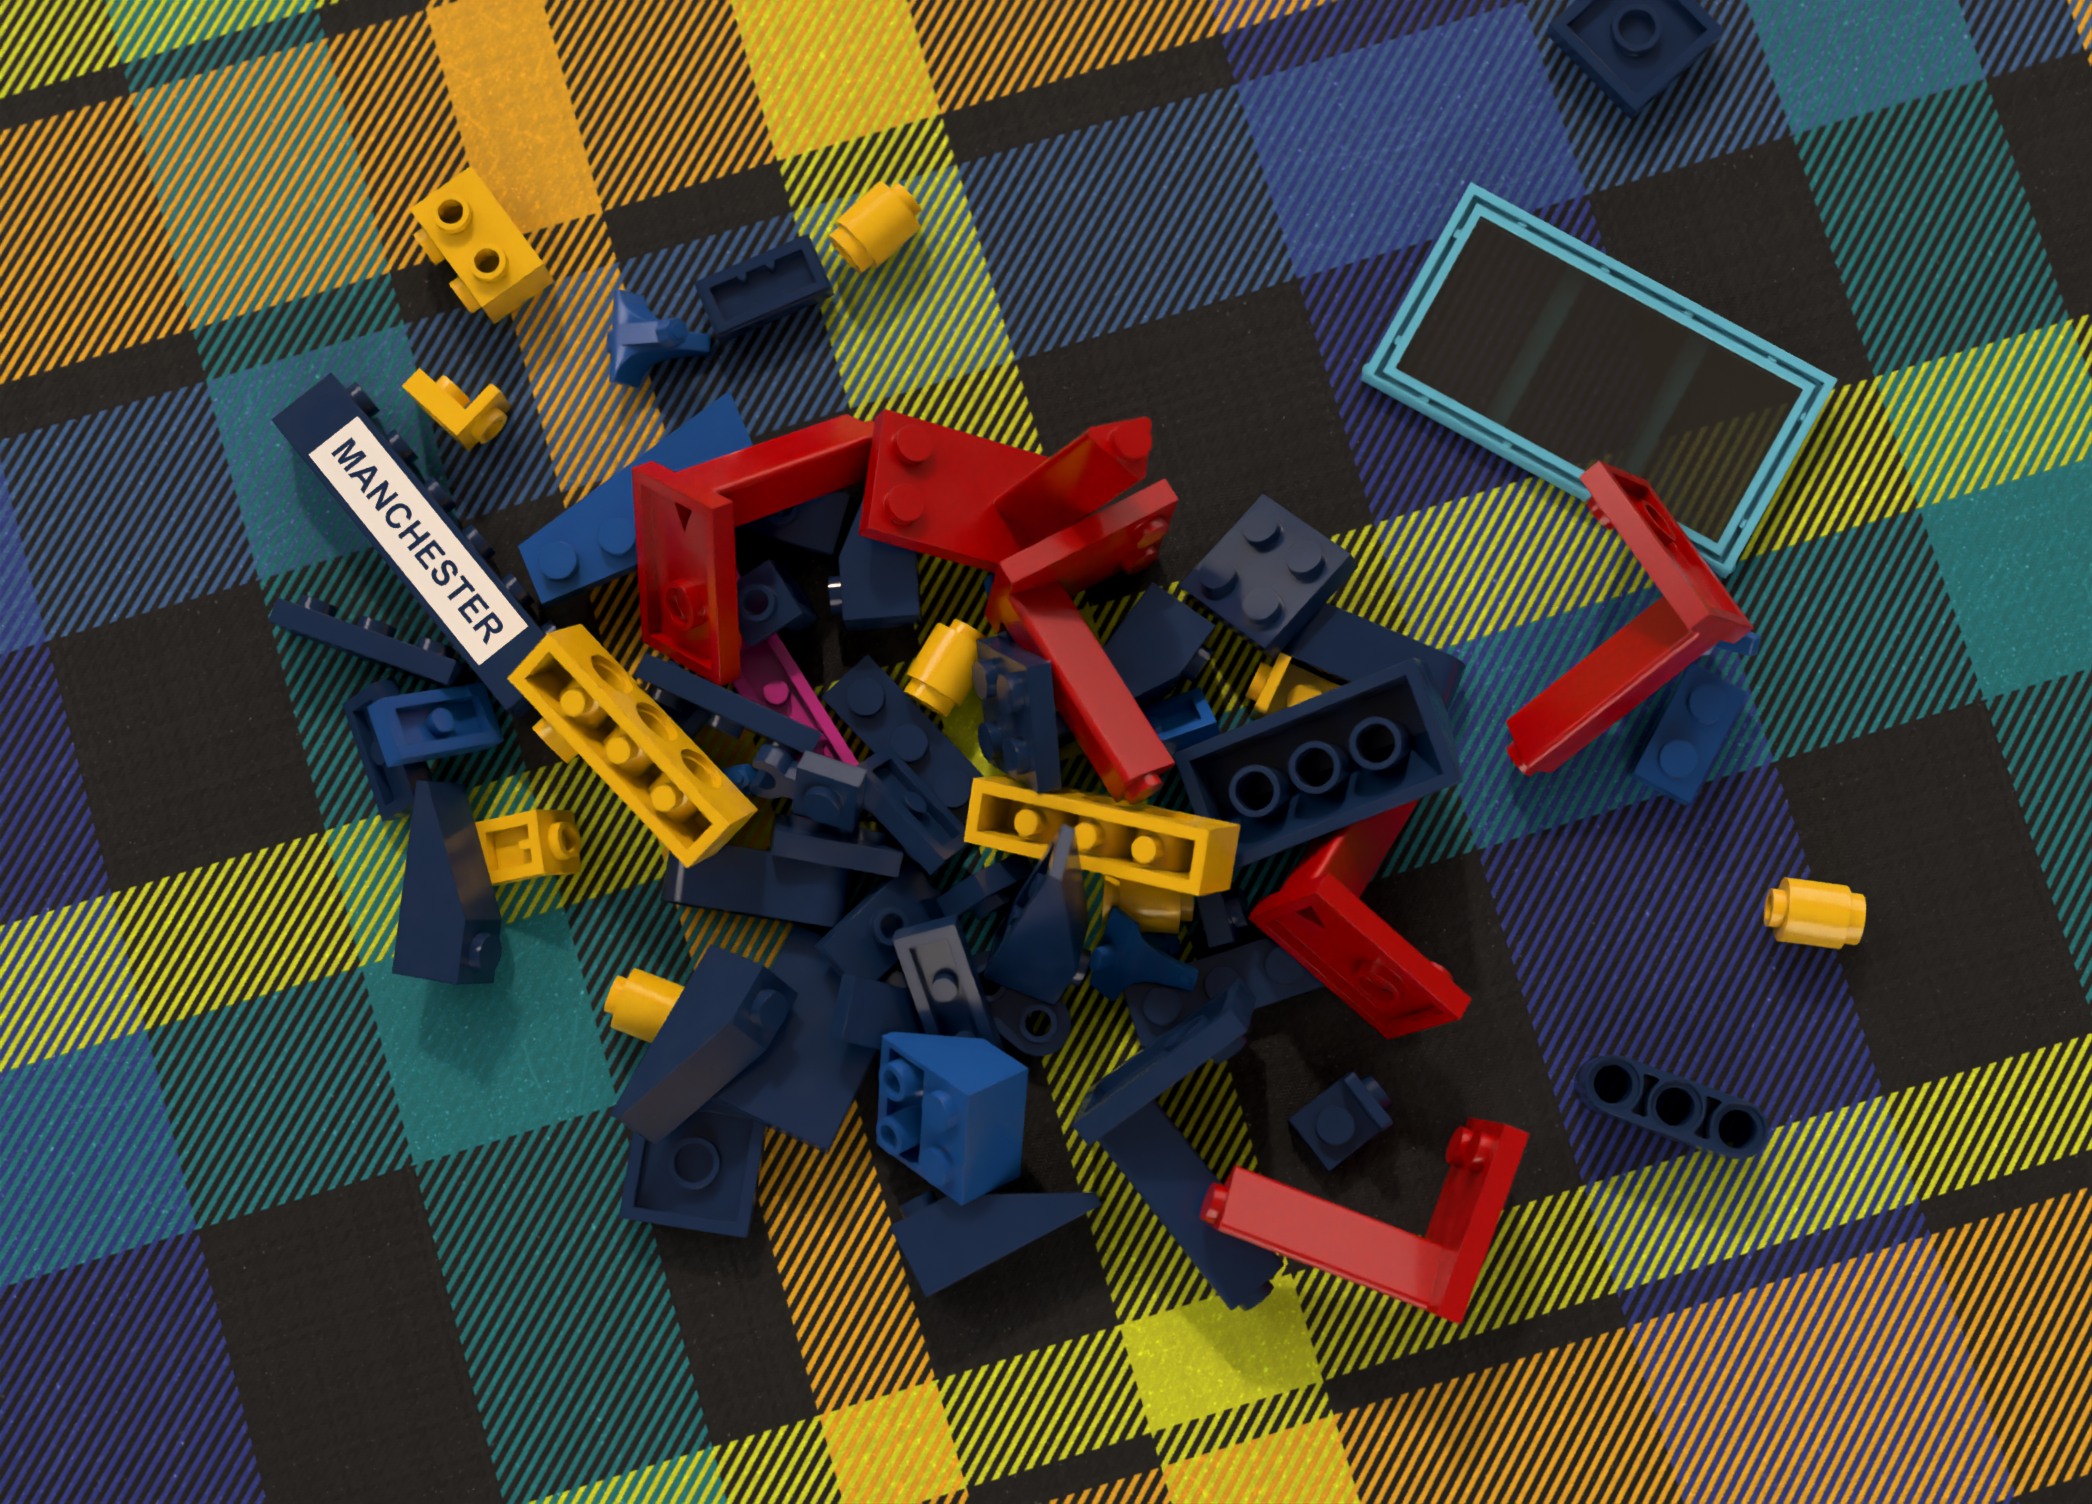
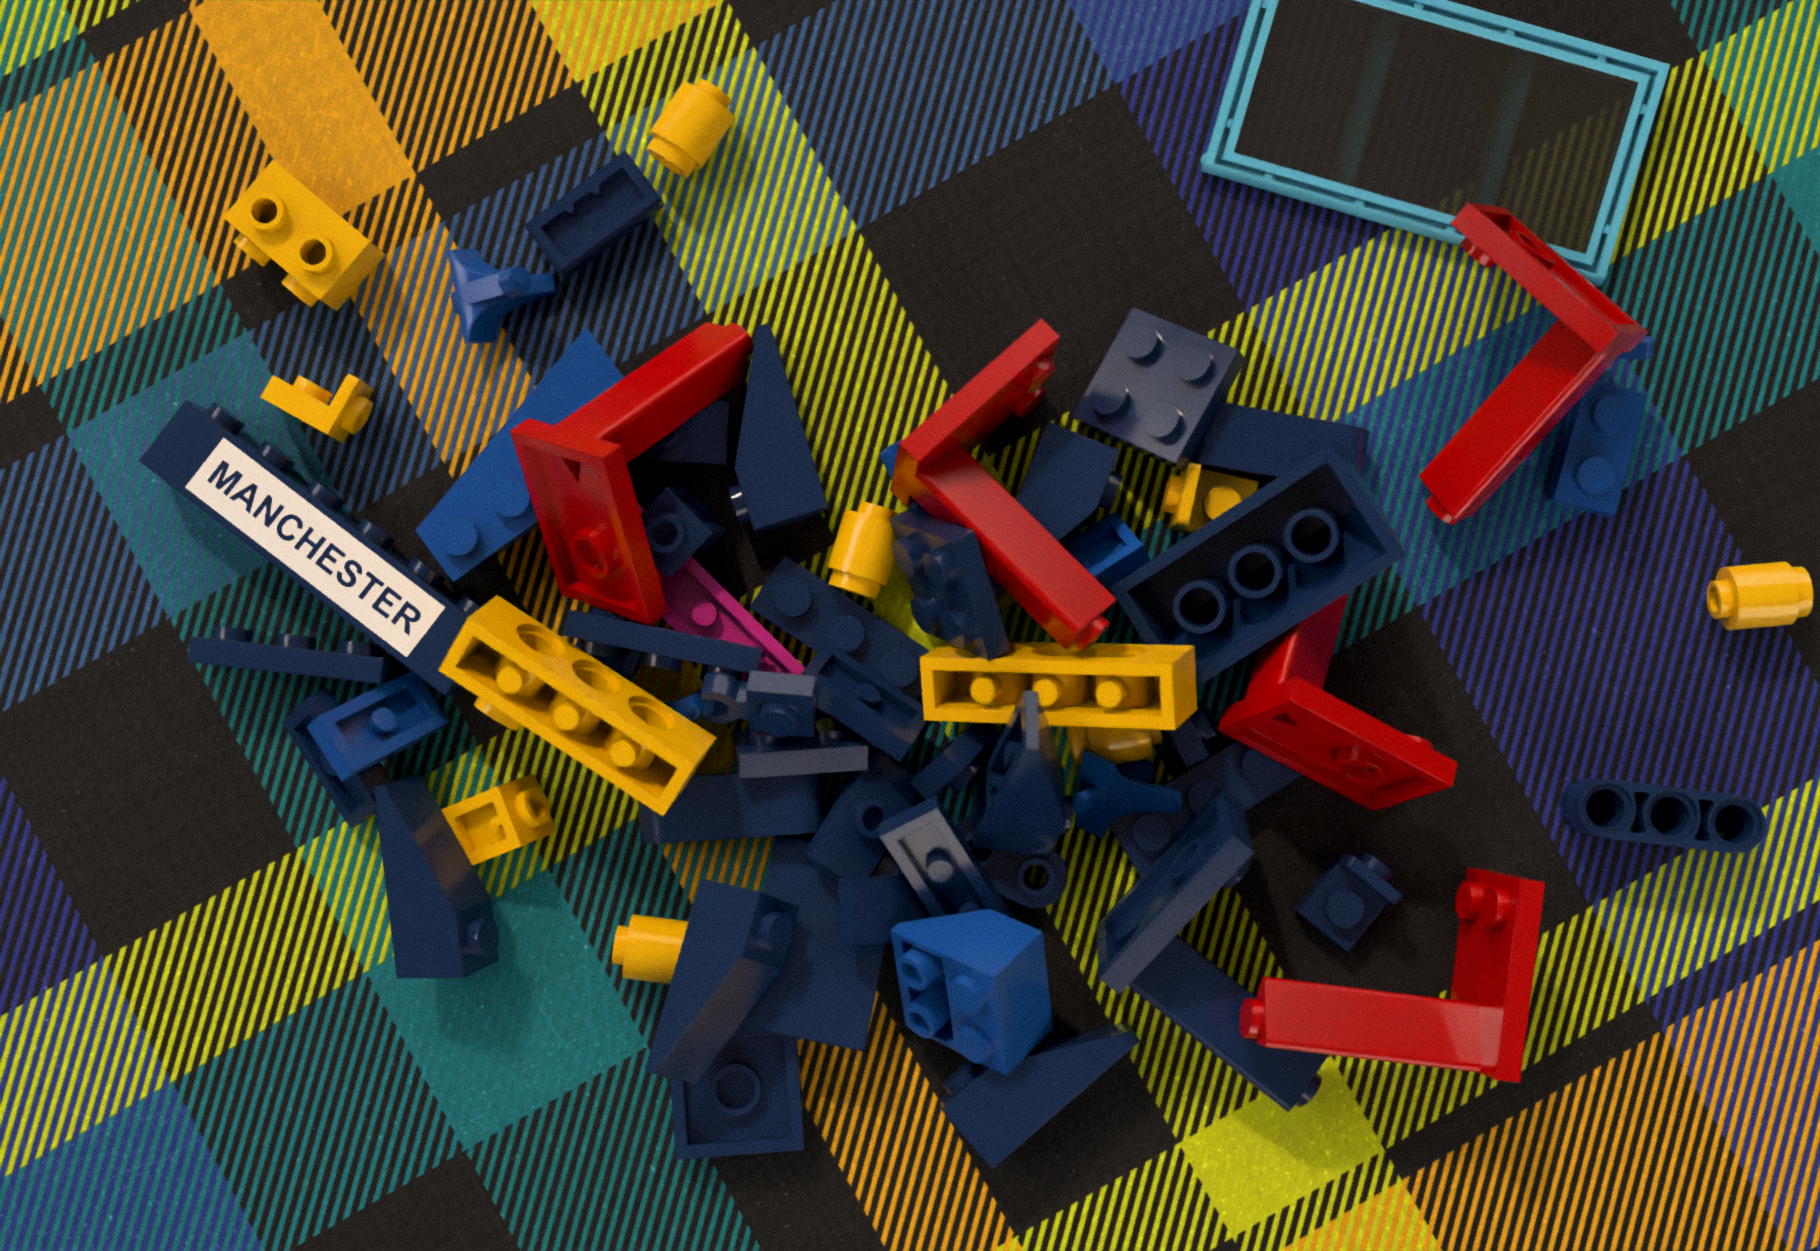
camera: 15 degrees left, 5 degrees up
(985, 498) = (871, 376): red piece -> none

